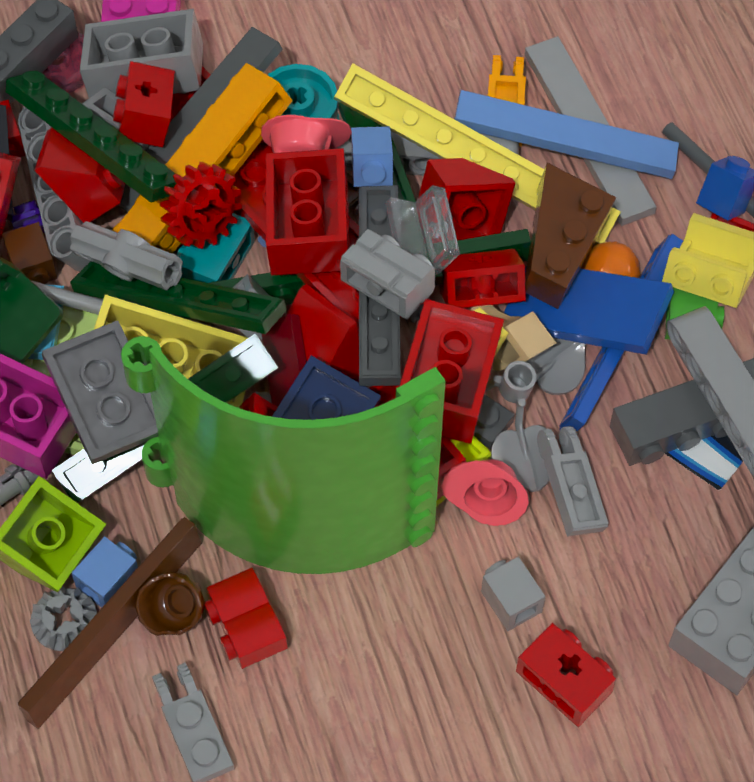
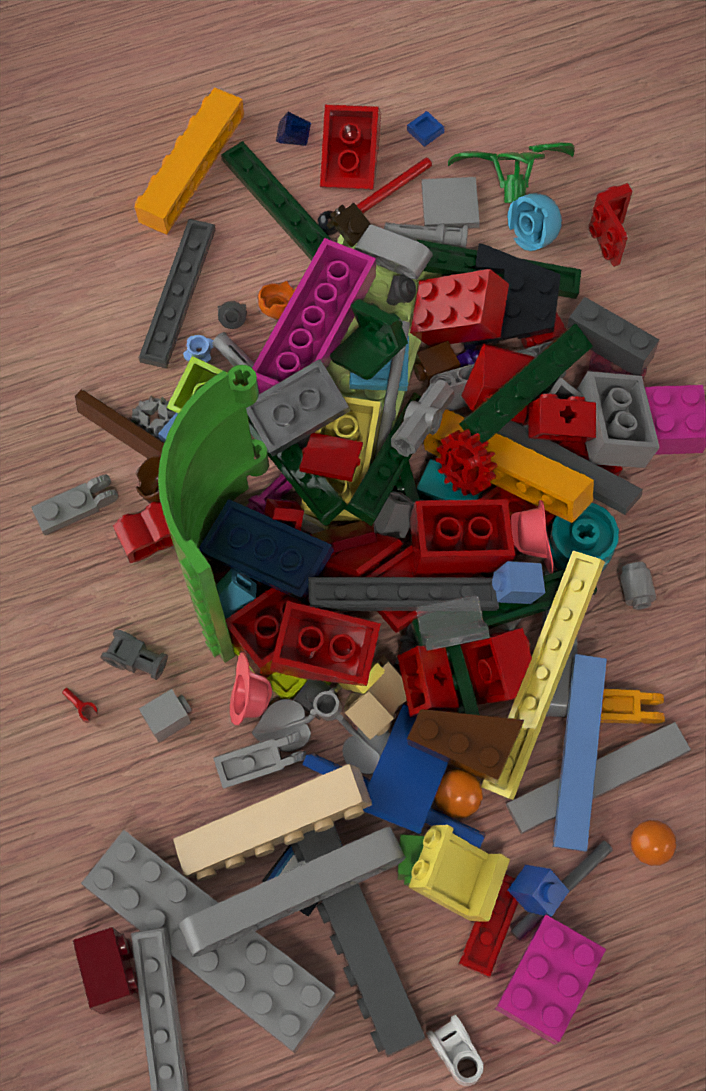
camera: 90 degrees right, 5 degrees up
(189, 347) = (331, 457): none -> red piece
(364, 57) = (637, 585): none -> light grey brick
(388, 273) = (398, 591): light grey brick -> none
(426, 637) = (131, 654): none -> dark grey connector
(496, 704) = (79, 704): none -> red hand
(572, 694) = (104, 739): red brick -> none
(665, 450) = (272, 822): none -> tan brick
(667, 79) = (653, 842): none -> orange piece

